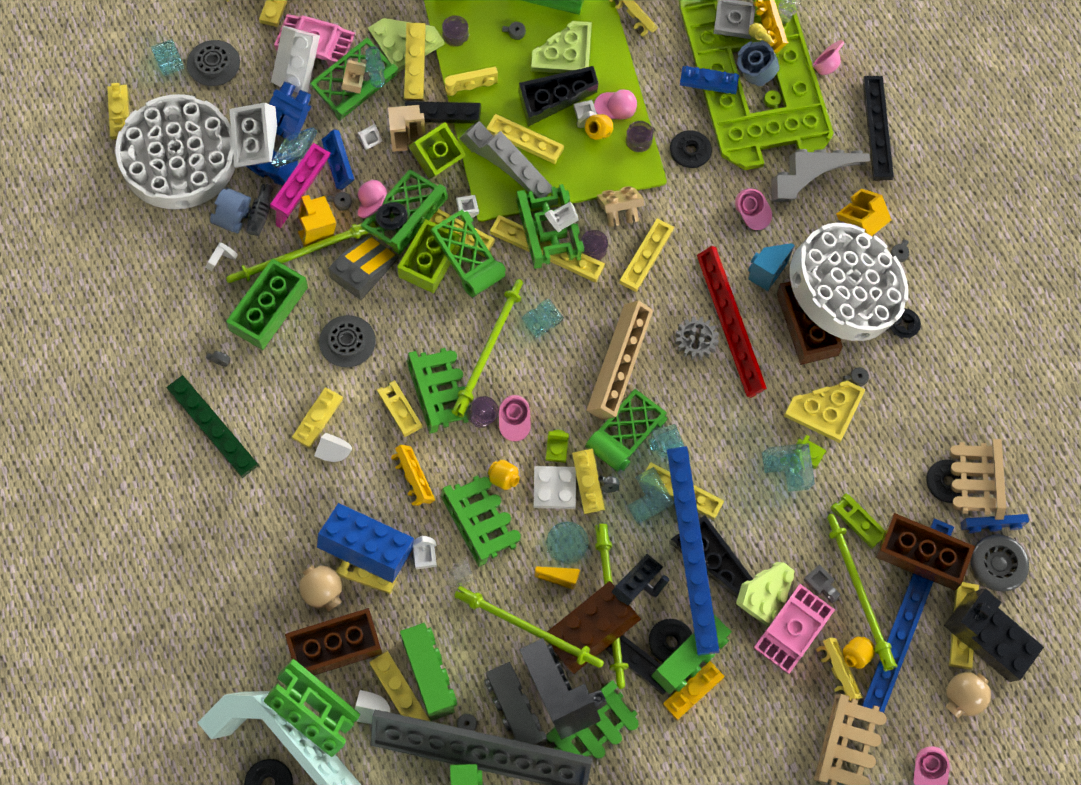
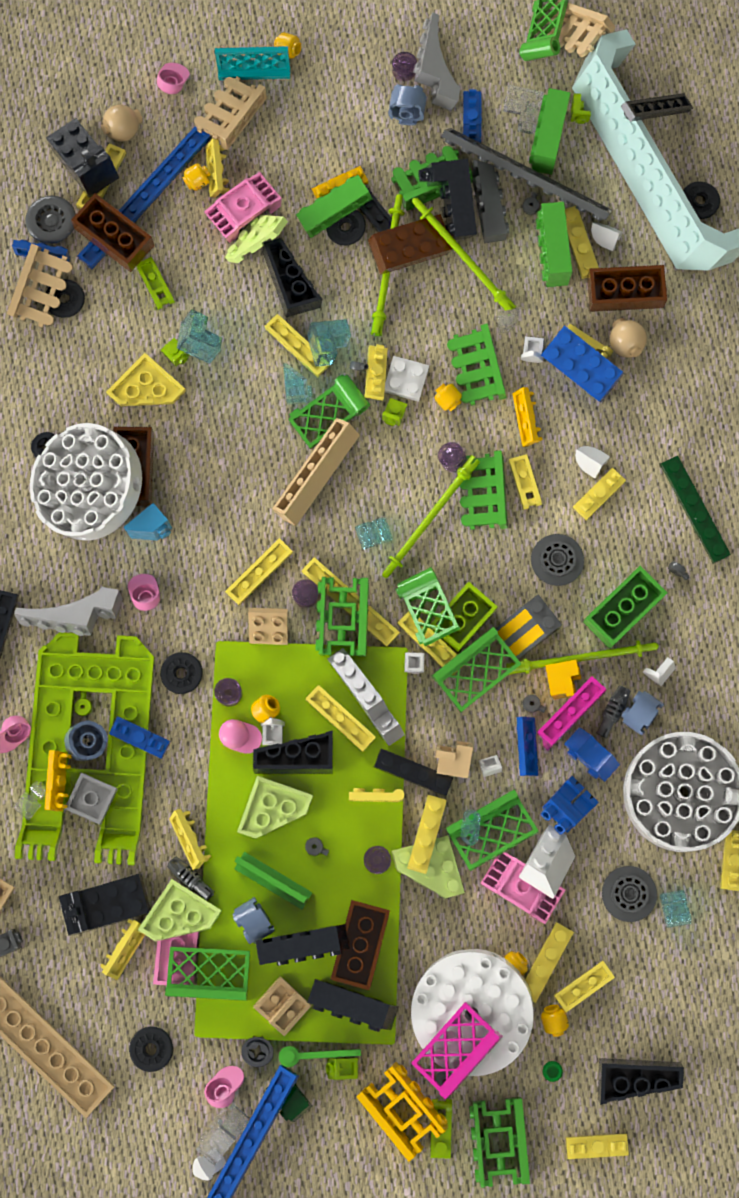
camera: 160 degrees left, 10 degrees up
(253, 134) = (606, 782): white slope -> none
(294, 147) = (569, 752): clear light blue tile -> none
(305, 687) = (649, 243): bright green fence -> none
(353, 76) = (494, 823): tan bracket -> none
(371, 197) = (504, 691): bright pink cap -> none
(384, 212) = (498, 654): black gear -> none
(437, 150) = (430, 724): lime brick -> none
(514, 418) = (424, 446): bright pink cap -> none
(561, 576) = (423, 299): yellow slope -> none
(562, 216) = (331, 614): white tile -> none
(567, 542) = (408, 328): clear light blue tile -> none
(639, 580) = (361, 267): black plate -> none
(690, 329) = (242, 488): light grey gear -> none
(693, 551) = (307, 283): blue plate -> none
(731, 322) = (202, 487): red plate -> none
(759, 32) = (75, 771): light yellow bar -> none
(820, 581) = (205, 240): flat silver plate -> none
(853, 377) = (110, 411): dark grey piece -> none
(866, 211) = (43, 552): yellow plate -> none
(882, 647) = (177, 171): lime bar -> none
(903, 249) = (22, 521): dark grey piece -> none

